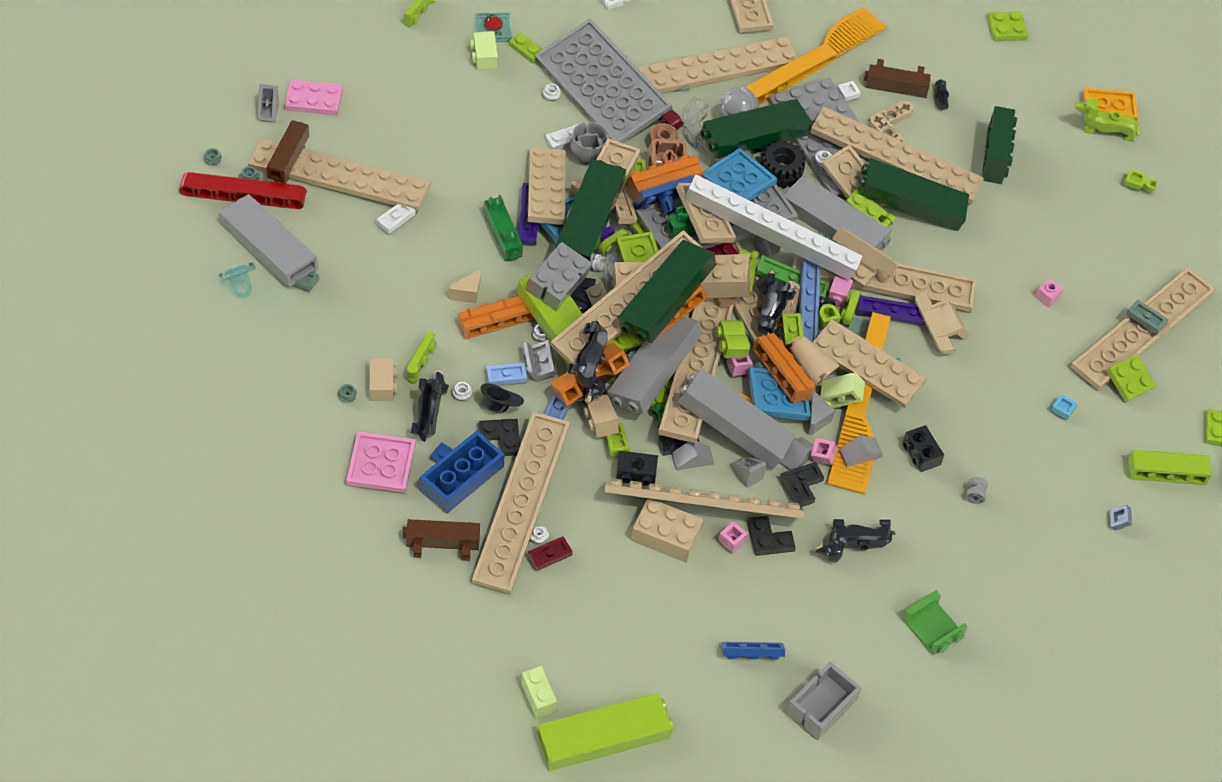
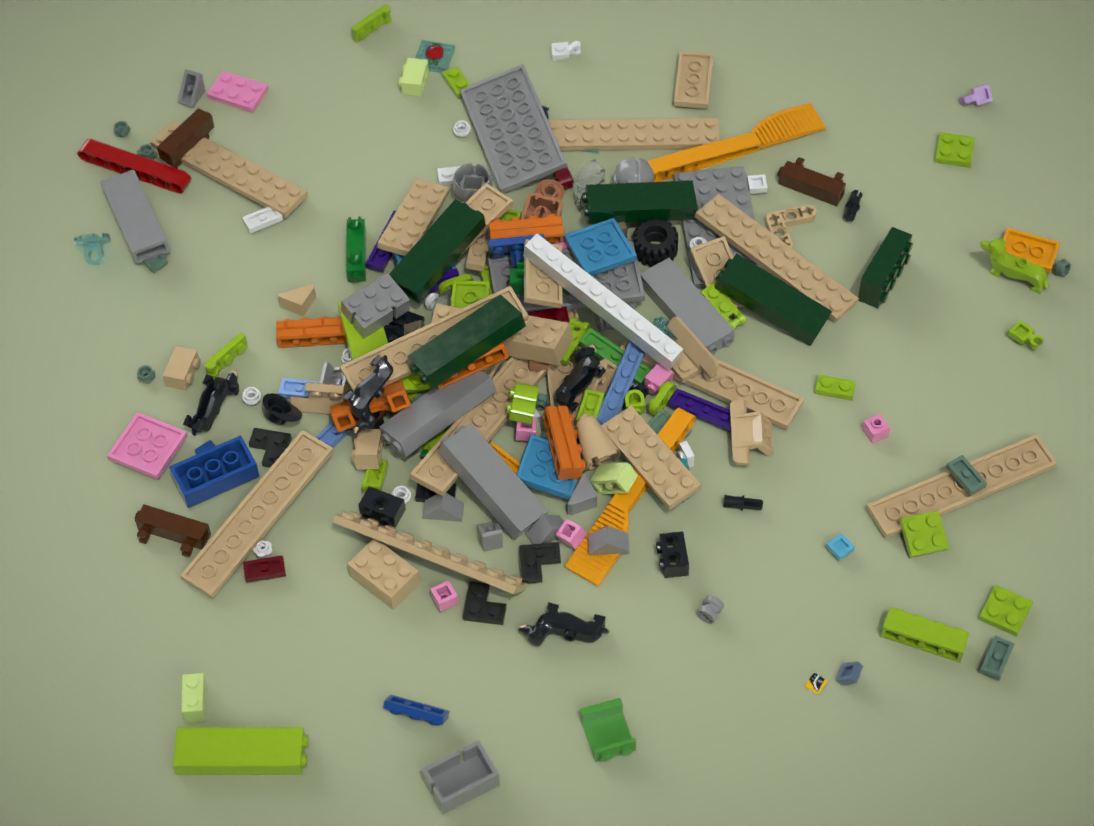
camera: 25 degrees right, 0 degrees up
(536, 377) = (320, 397): none -> tan plate
(649, 448) = (402, 490): none -> white plate
(894, 351) = (686, 453): none -> white plate
(961, 387) = (741, 502): none -> black axle
(996, 263) = (835, 387): none -> lime plate
(1093, 534) = (816, 683): none -> sticker
(1145, 114) = (1062, 267): none -> sand green plate

